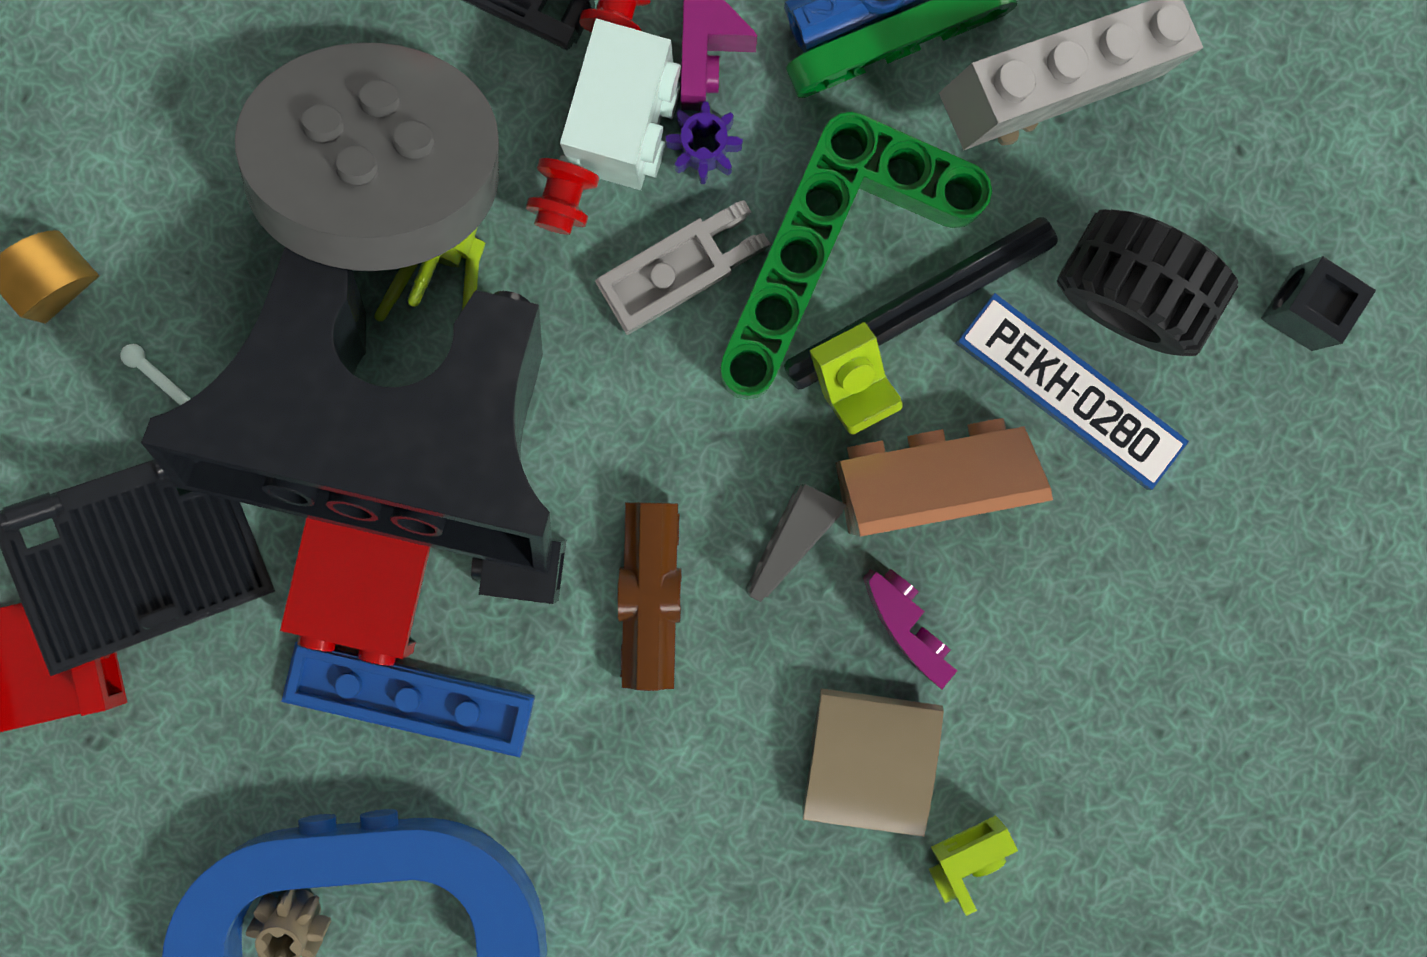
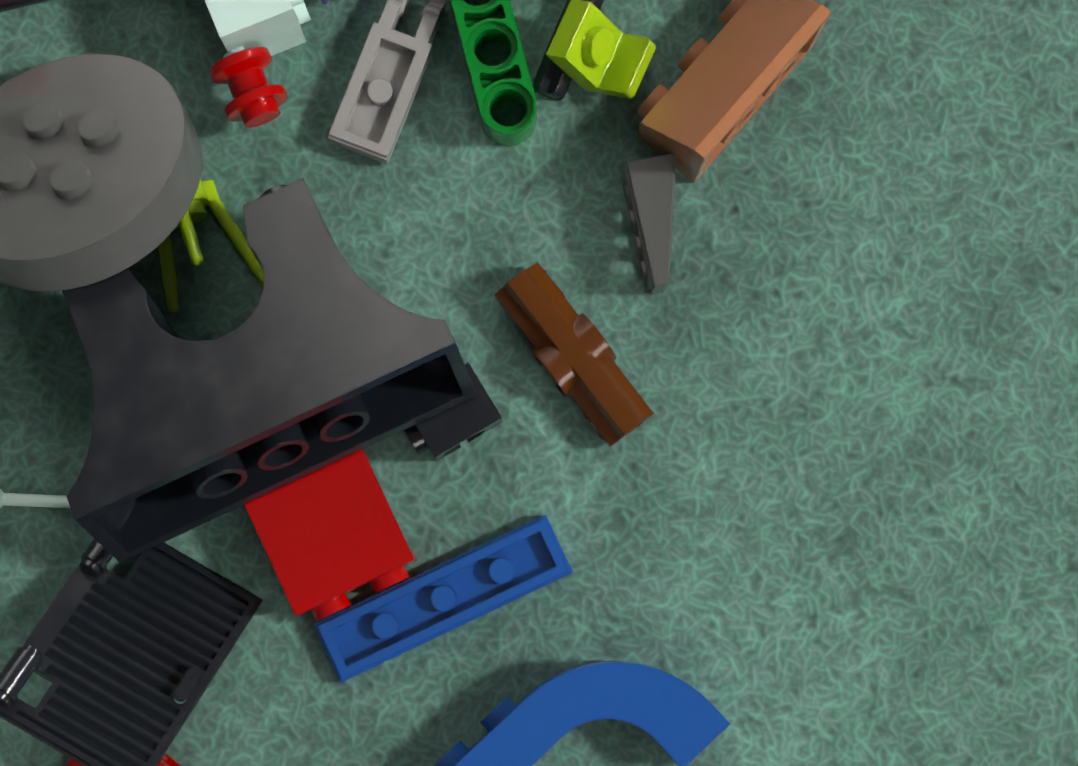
camera: 40 degrees left, 5 degrees down
(873, 762) = (861, 347): dark tan slope -> none
(898, 613) = (782, 211): magenta slope -> none
(973, 852) = (1003, 352): lime bracket -> none

